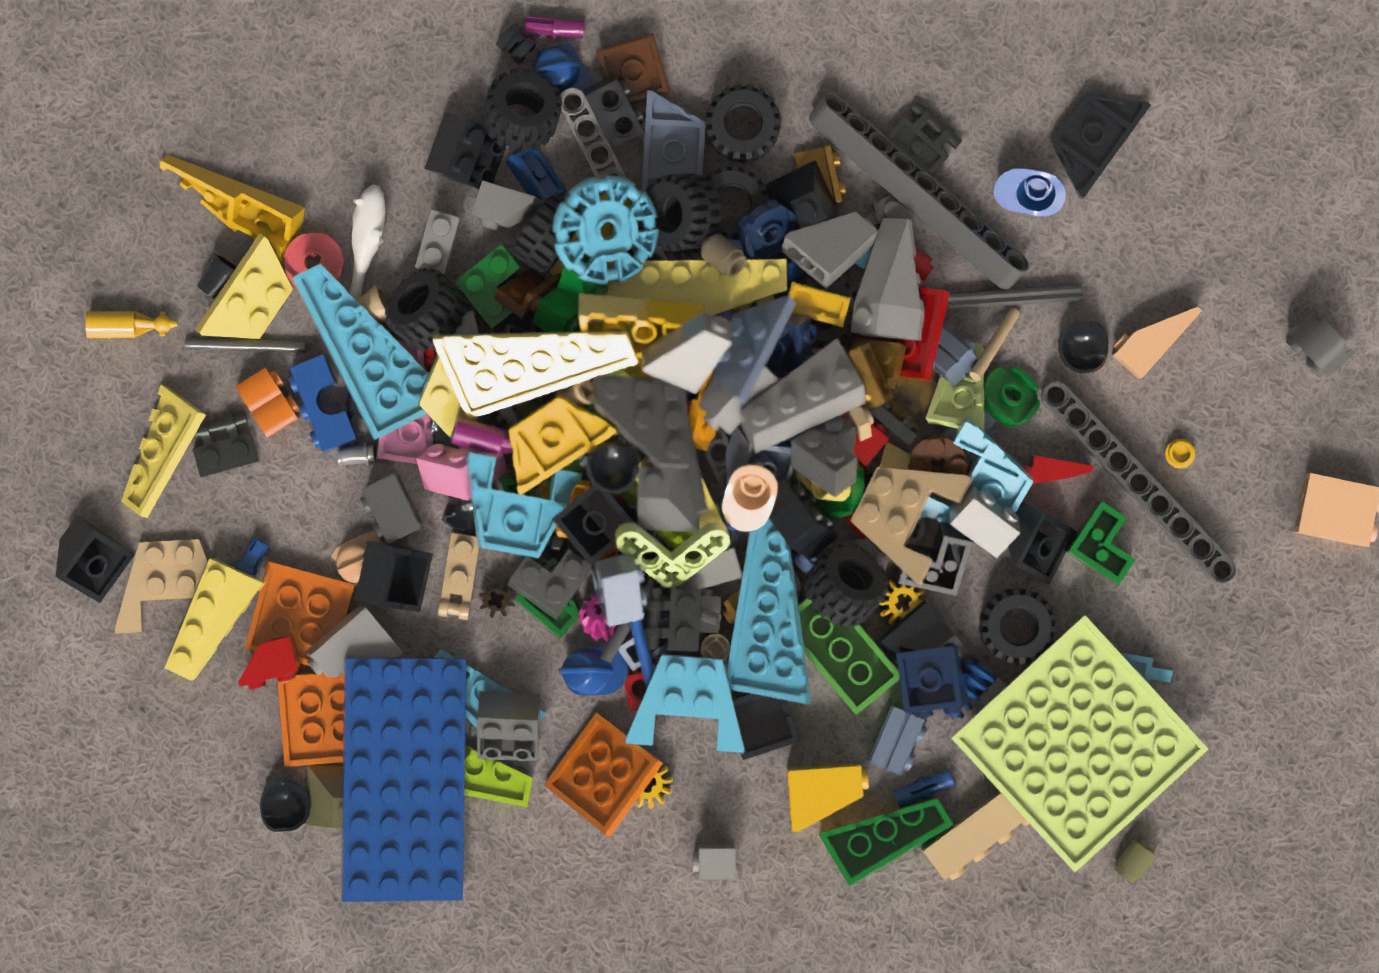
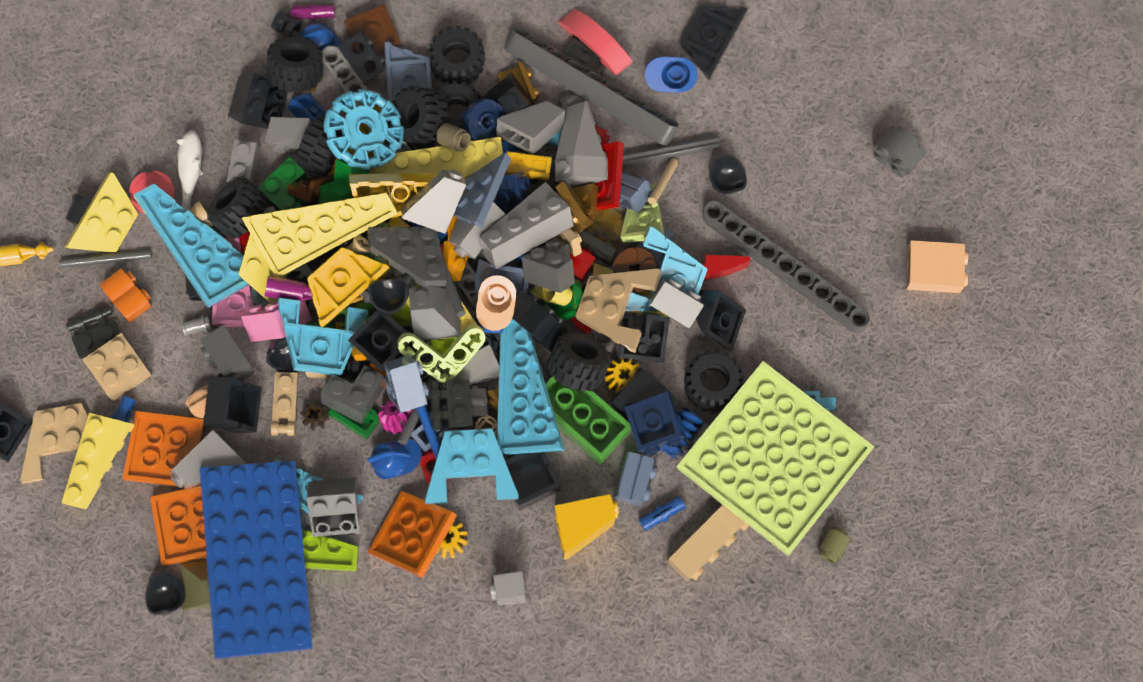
camera: 10 degrees left, 15 degrees down
(168, 438) = (51, 333): light yellow wing -> none
(242, 205) = (95, 160): yellow wedge -> none
(249, 499) = (117, 367): none -> tan brick
(271, 660) = (142, 482): red slope -> none
(310, 380) = (158, 275): blue arch -> none
(803, 562) = (543, 355): medium blue plate -> none
(876, 842) = (632, 558): green wedge -> none
(934, 124) = (596, 39): none -> coral slope
(1025, 399) = (685, 226): green plate -> none
(1094, 546) = (762, 316): green brick -> none
(1148, 344) = (776, 167): light nougat slope -> none
(1180, 453) = (812, 243): yellow plate -> none

